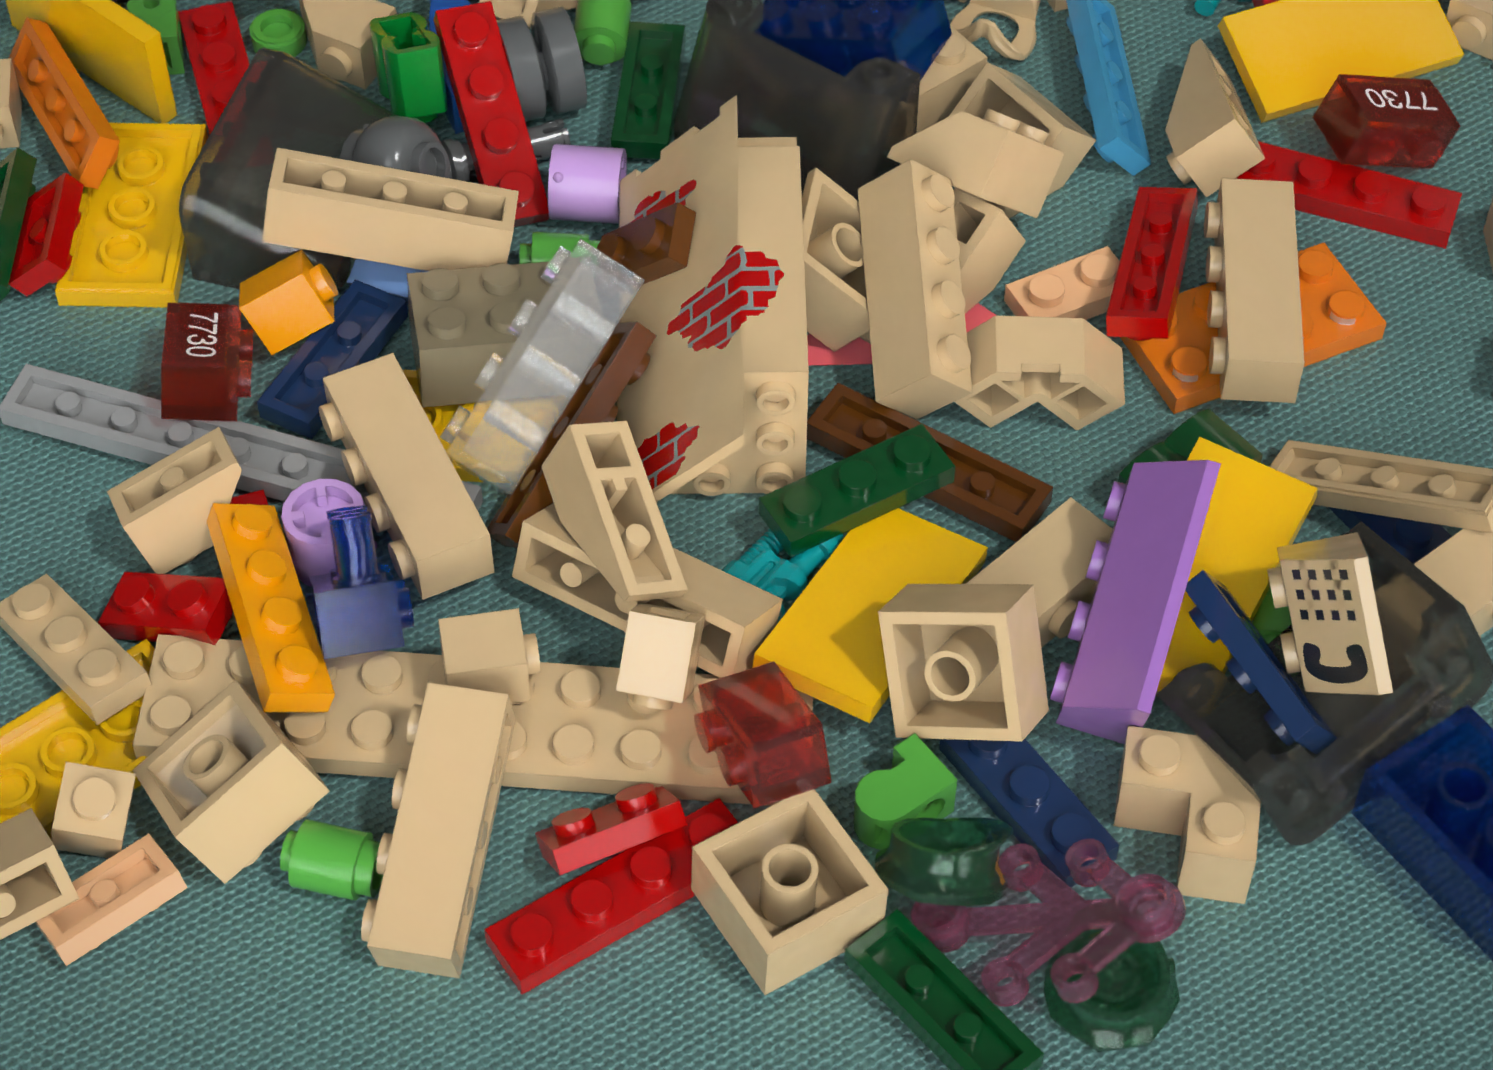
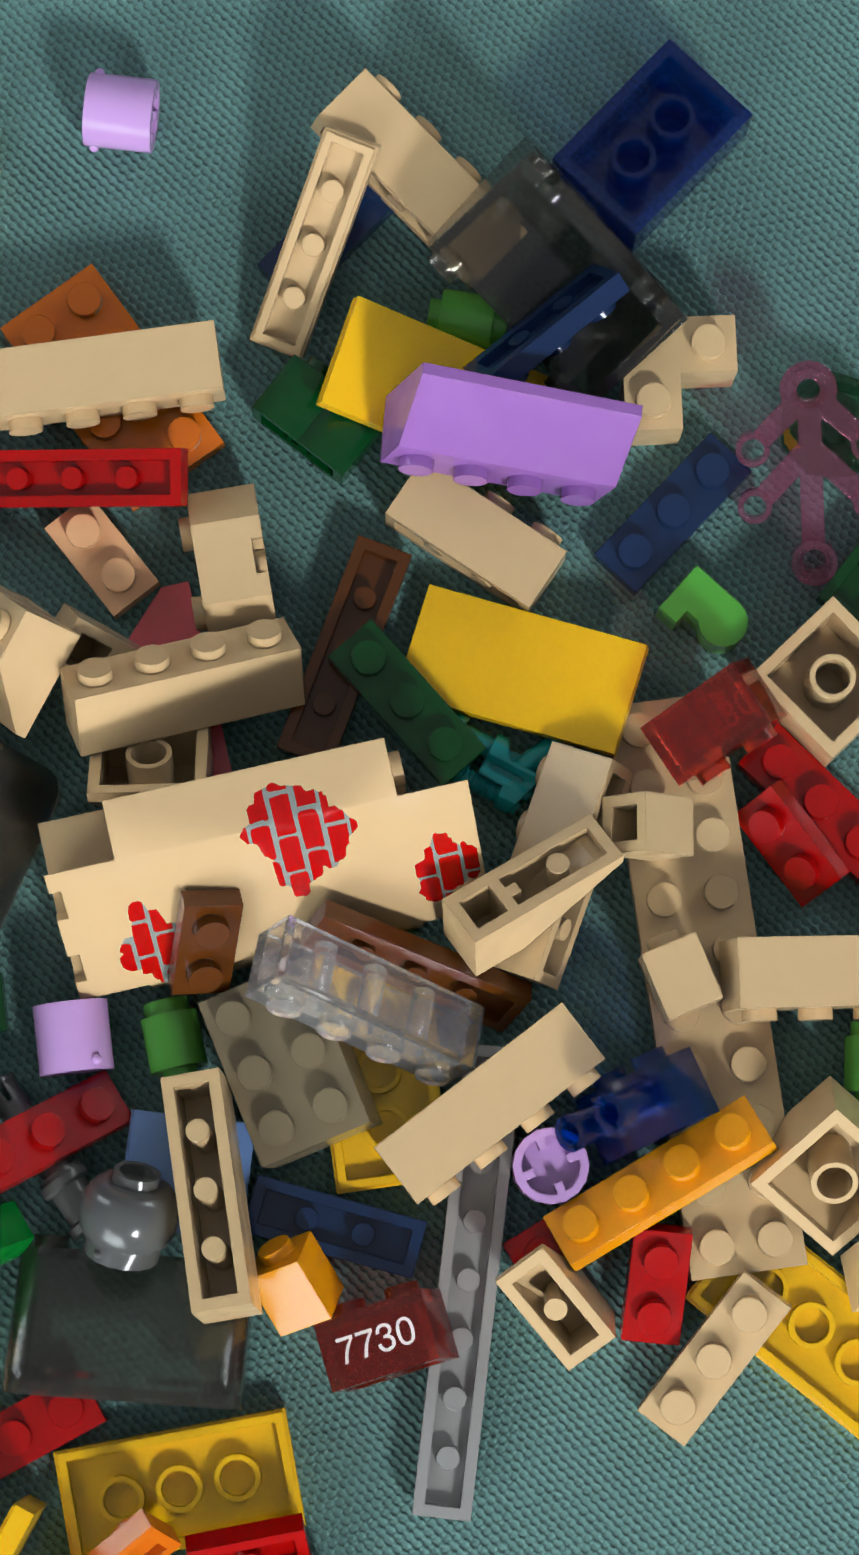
camera: 105 degrees left, 30 degrees up
(945, 860) = (776, 563): clear green hat -> none
(964, 661) = (599, 571): tan brick -> none
(1332, 616) = (526, 264): tan slope -> none

